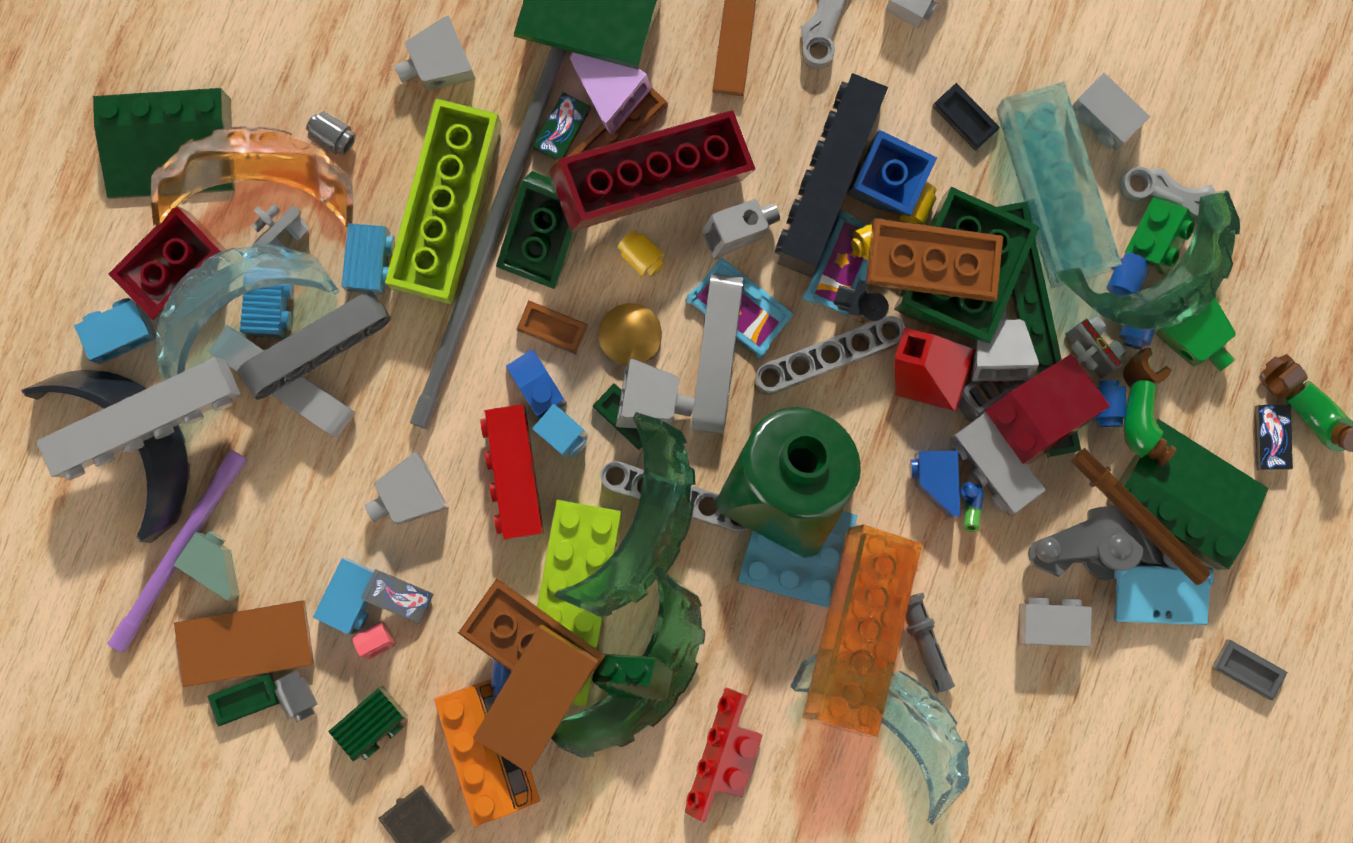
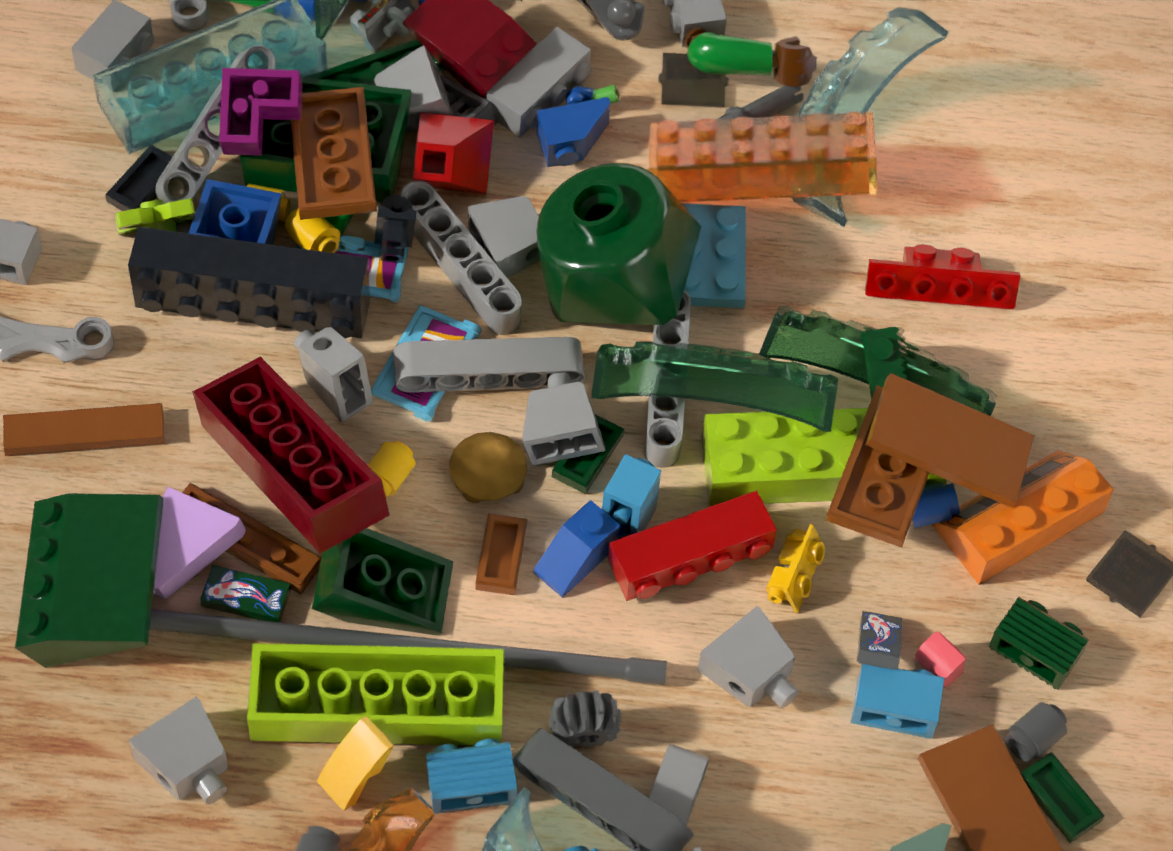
camera: 110 degrees left, 25 degrees down
(384, 350) = (585, 719): none -> dark grey gear
(391, 175) = (354, 761): none -> yellow slope
(491, 562) = (803, 554): none -> yellow hinge
(844, 398) = (506, 232): none -> light grey torso
(909, 112) = (155, 215): none -> lime plant
(979, 603) = (689, 86): none -> clear smoke piece
(986, 192) = (251, 97): none -> magenta brick
(986, 628) = (744, 56): none -> green piece
(1005, 176) = (202, 138): none -> light grey beam

